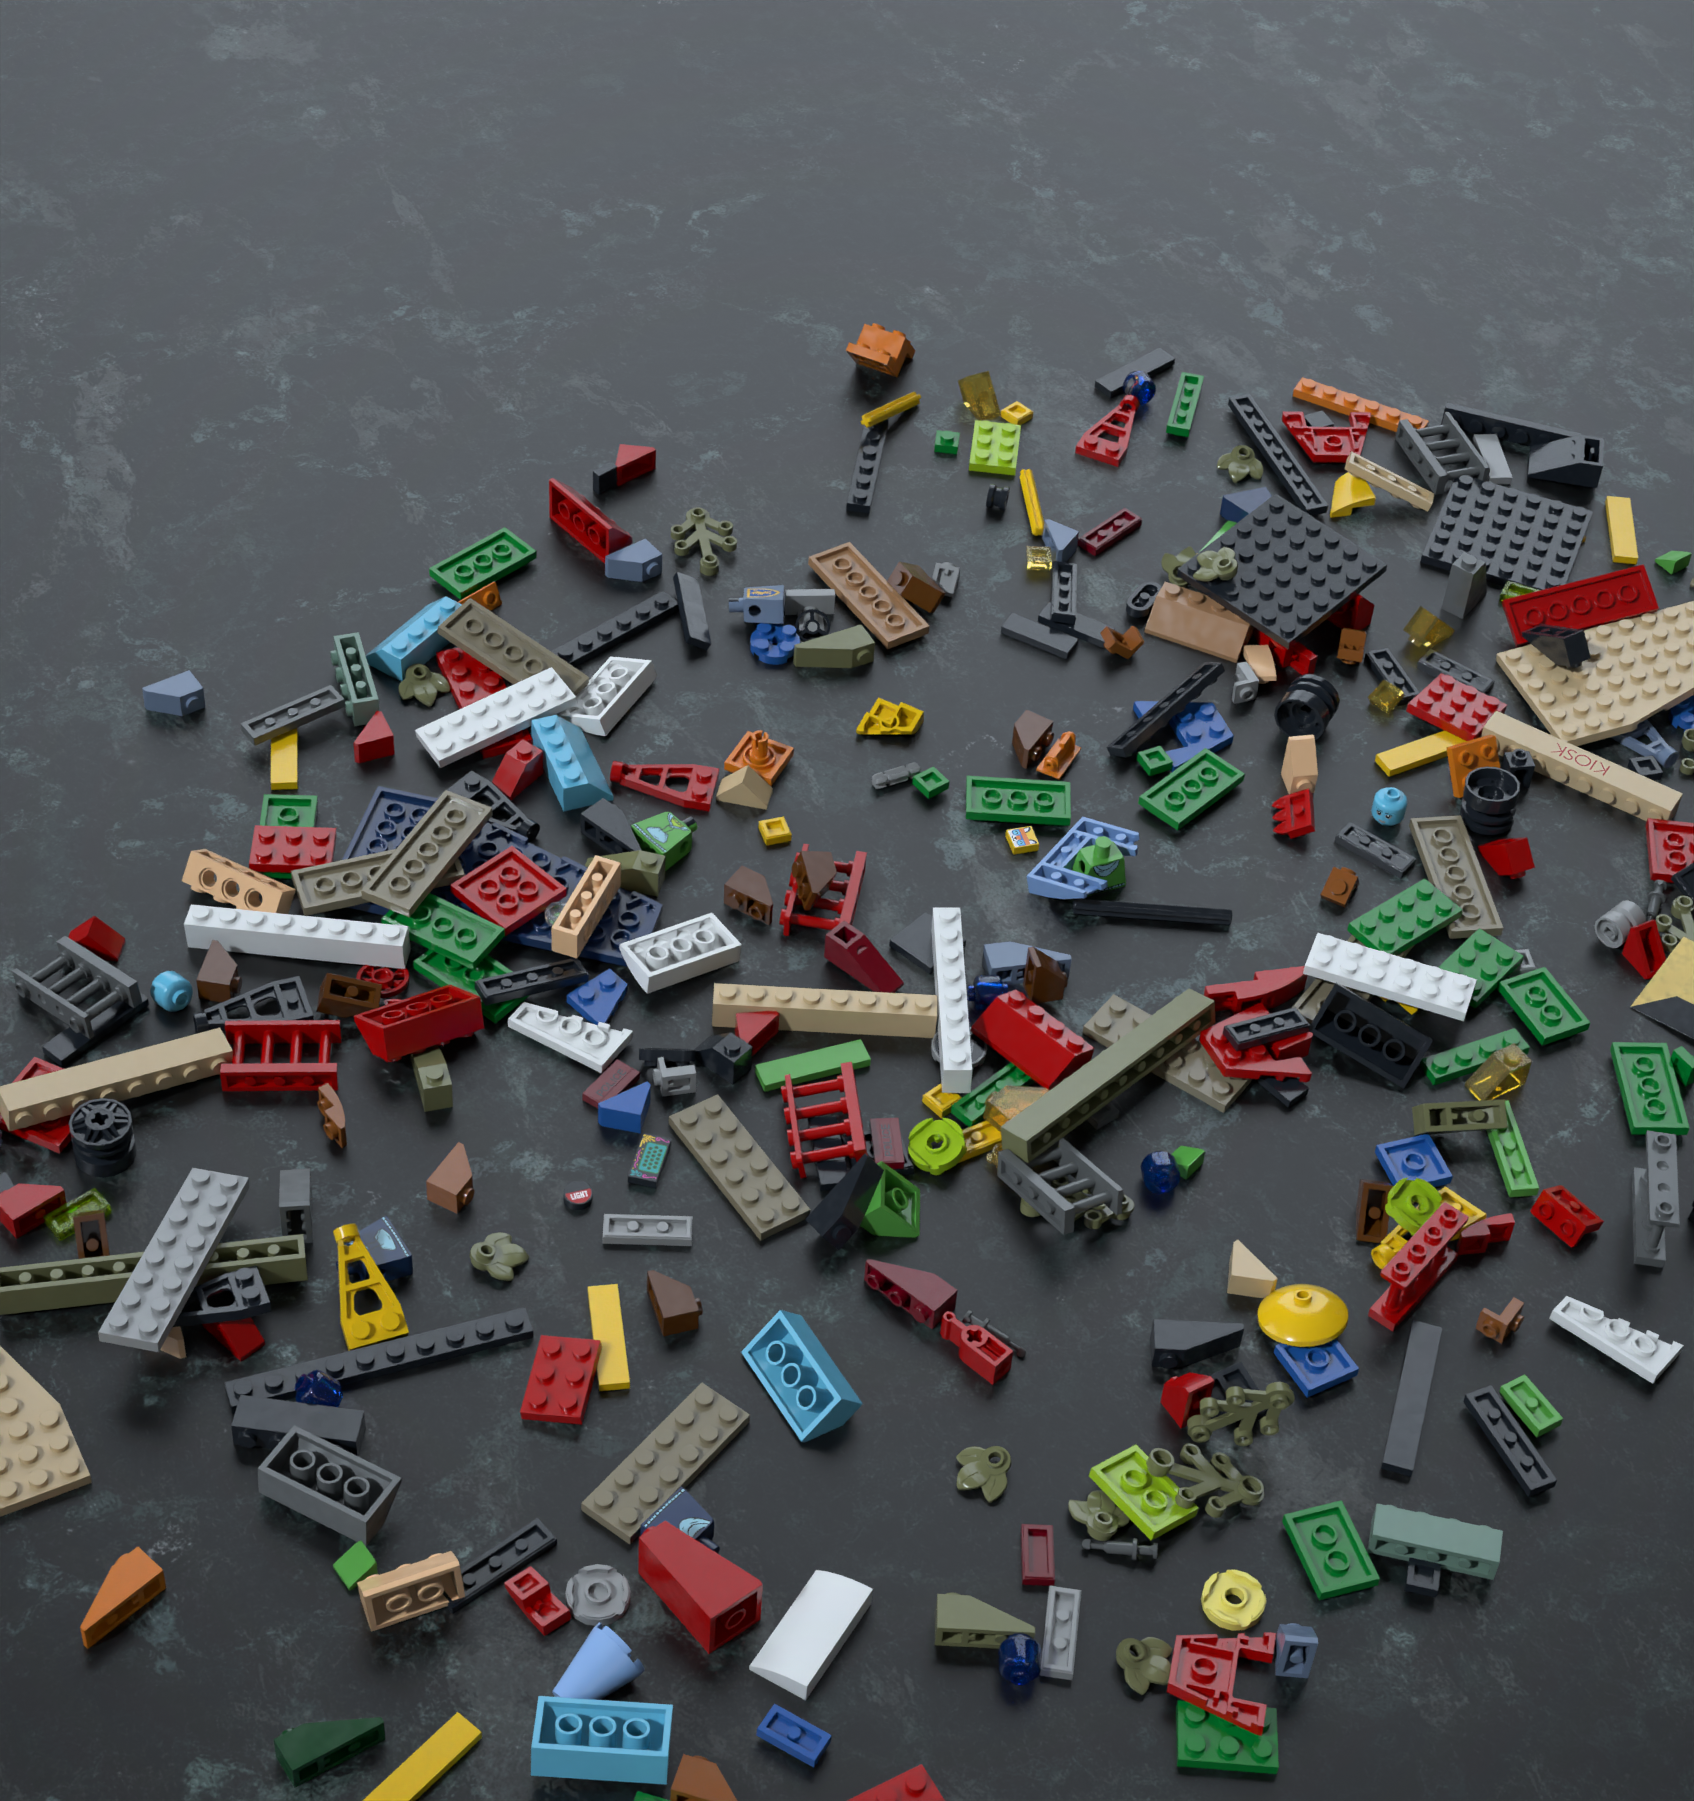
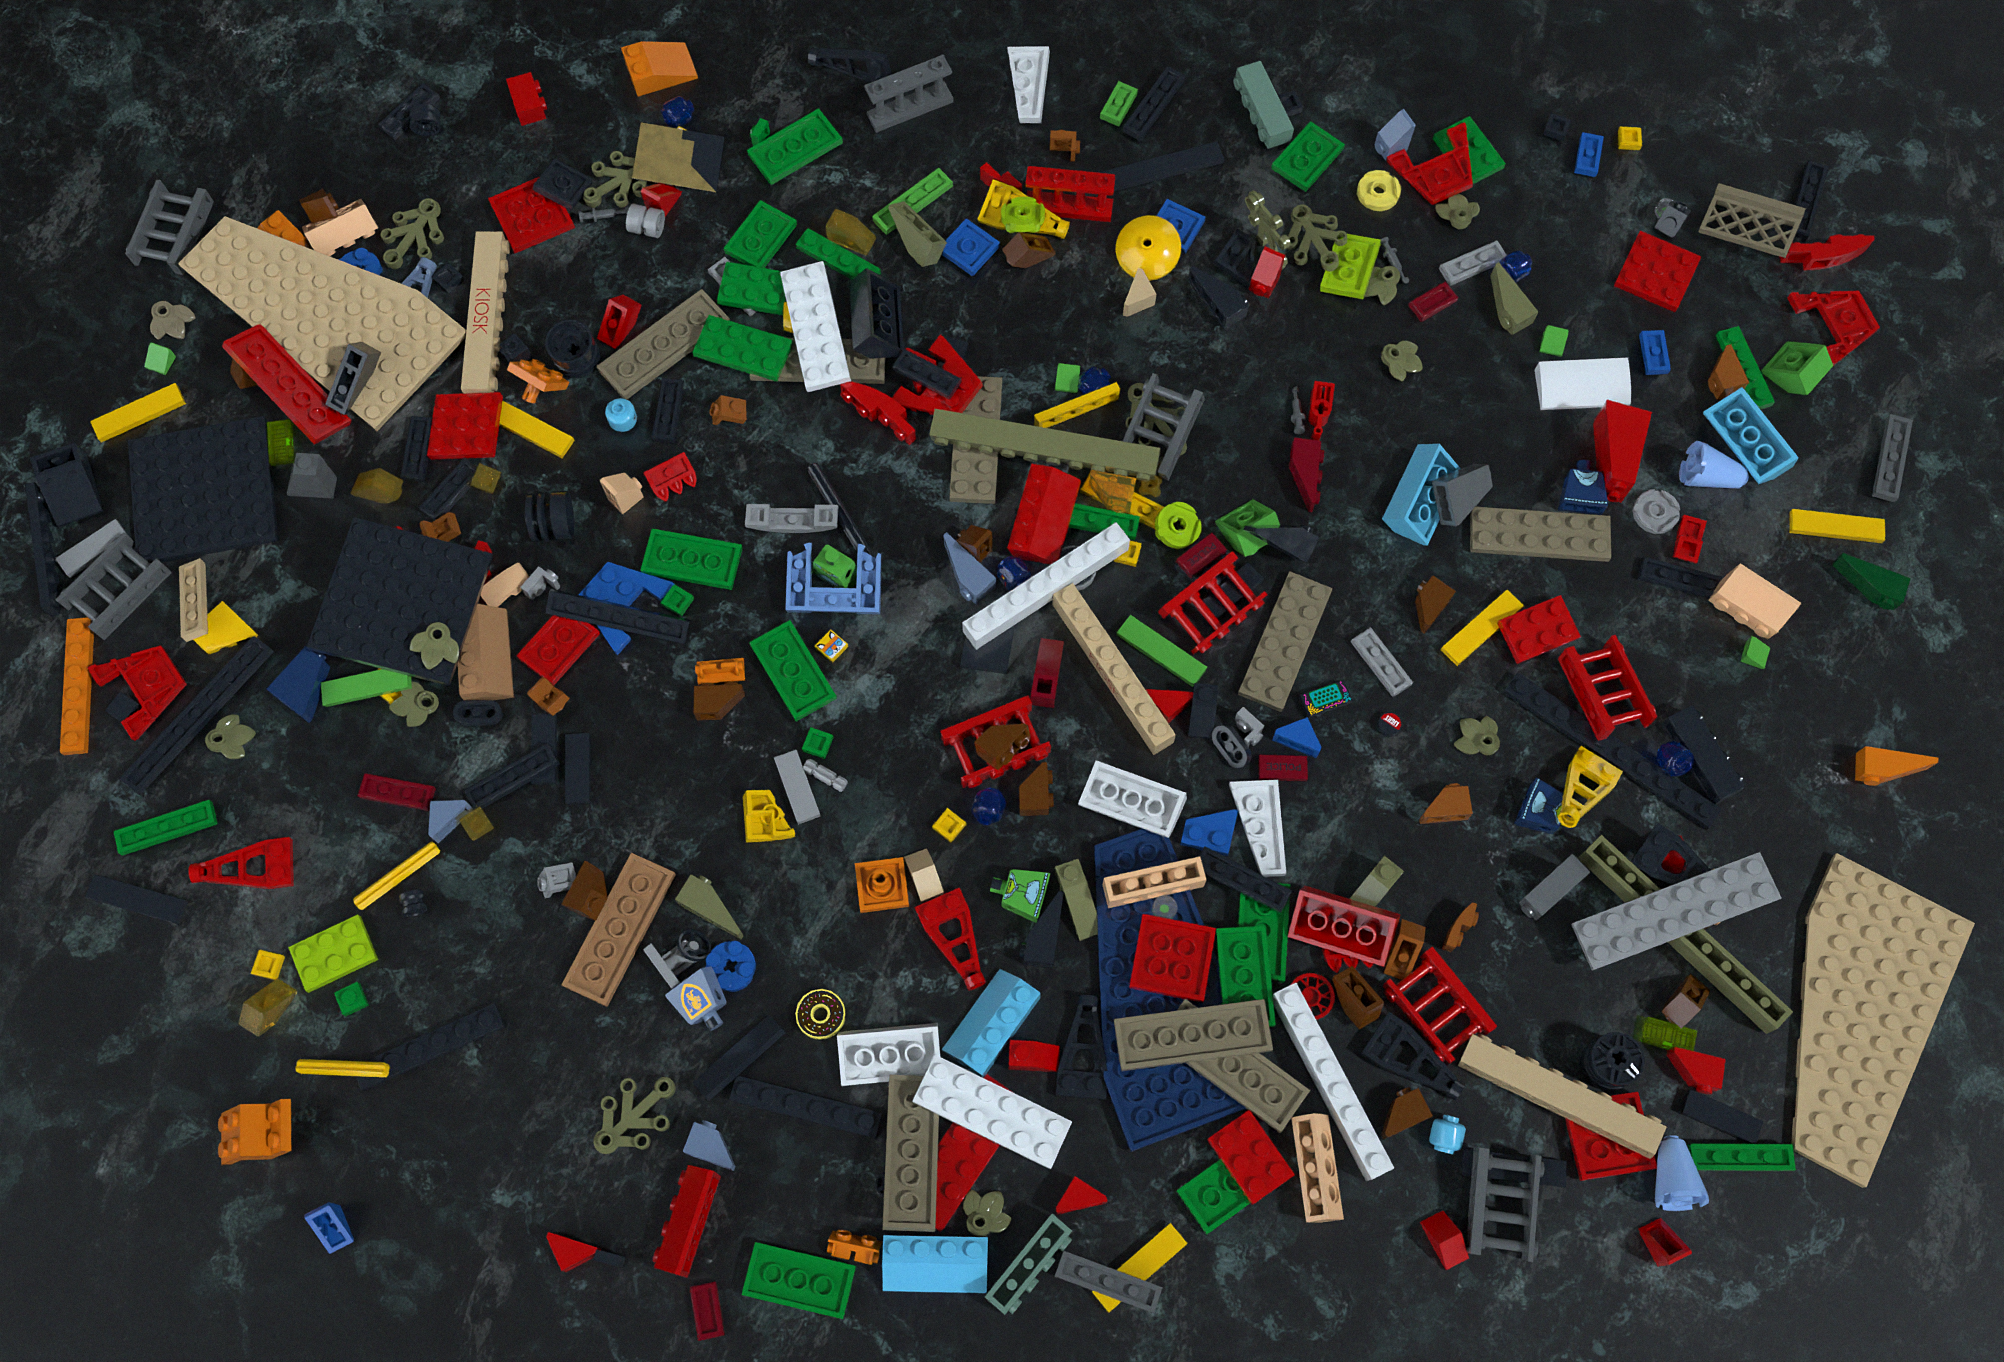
camera: 120 degrees left, 25 degrees up
(328, 1484) = (1732, 699): dark grey slope -> none
(357, 1064) = (1404, 949): none -> dark orange slope
(453, 1356) = (1592, 702): none -> red fence
(513, 512) = (707, 1311): none -> dark red tile
(686, 664) = (813, 1001): none -> tile
(766, 857) = (988, 806): none -> clear blue head
(774, 363) = (330, 1226): none -> blue slope
(774, 1403) = (1460, 492): none -> dark grey slope
(891, 1640) = (1553, 340): none -> bright green slope
(899, 753) = (797, 787): none -> light grey tile
(1139, 385) = (168, 875): clear blue head -> none
(1141, 1144) = (1077, 406): none -> yellow tile
(1166, 665) = (557, 647): none -> red plate
(1185, 871) = (791, 519): none -> light grey slope
(1565, 1215) = (946, 146): red bracket -> none

